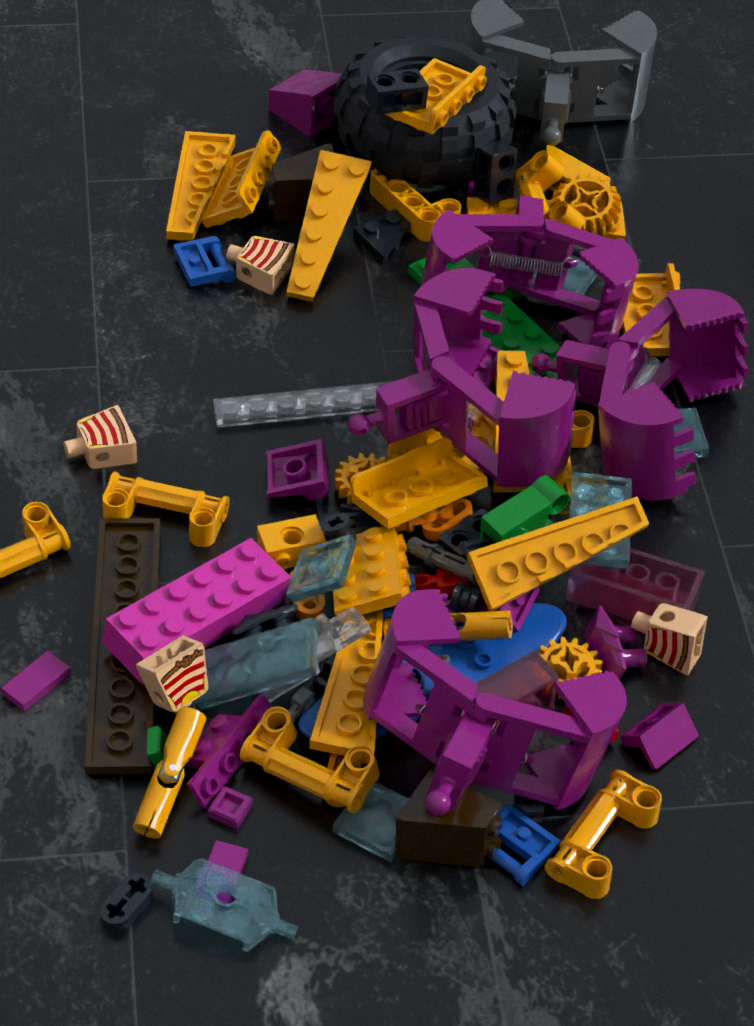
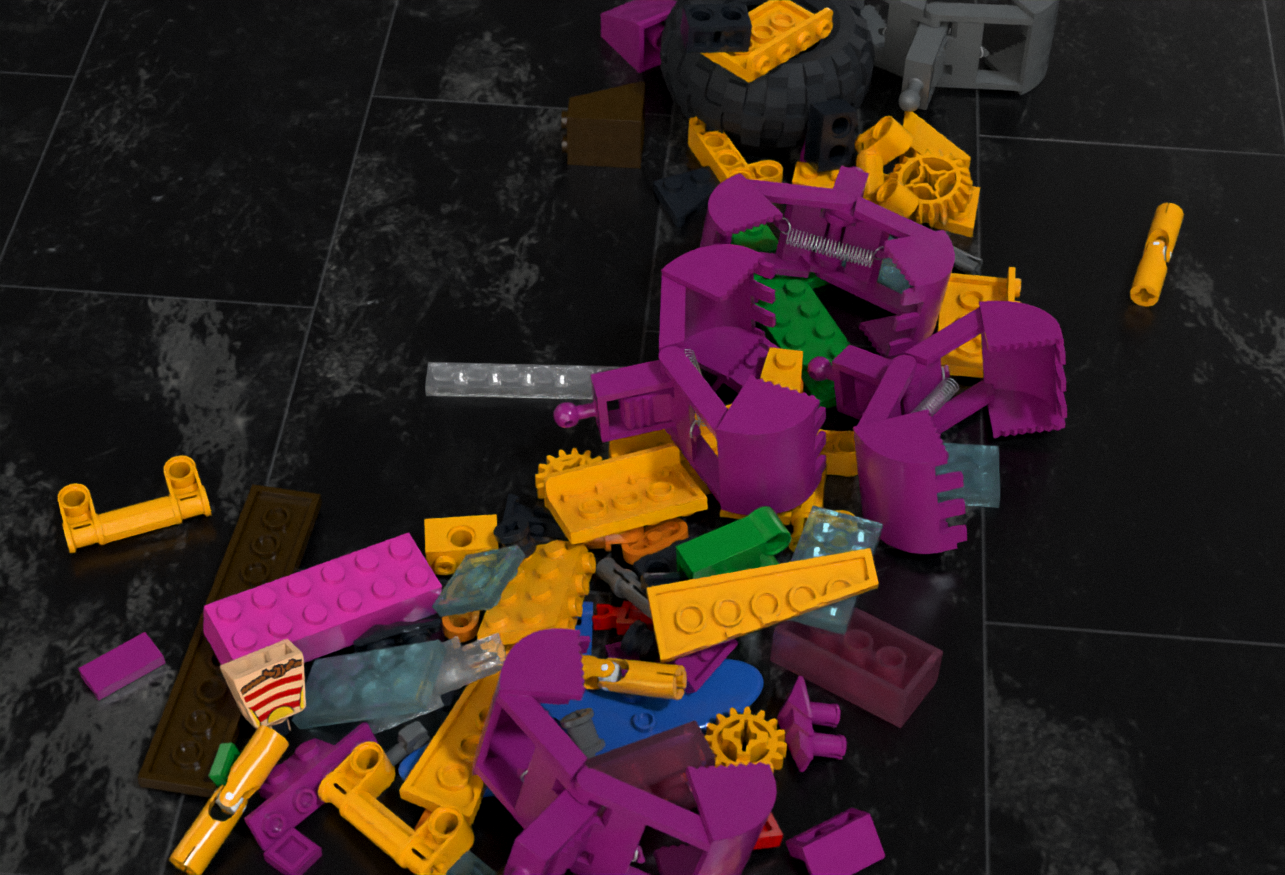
camera: 15 degrees right, 0 degrees up
(103, 440) = (287, 393): light nougat torso -> none
(196, 264) = (460, 204): blue plate -> none
(198, 174) = (494, 102): light orange wing -> none
(205, 511) = (373, 493): light orange piece -> none
(242, 182) = (537, 115): light orange bracket -> none
(262, 262) = (535, 210): light nougat torso -> none
(298, 470) = (497, 459): magenta slope -> none
(329, 205) = (623, 150): light orange wing -> none
(672, 635) = (883, 726): light nougat torso -> none

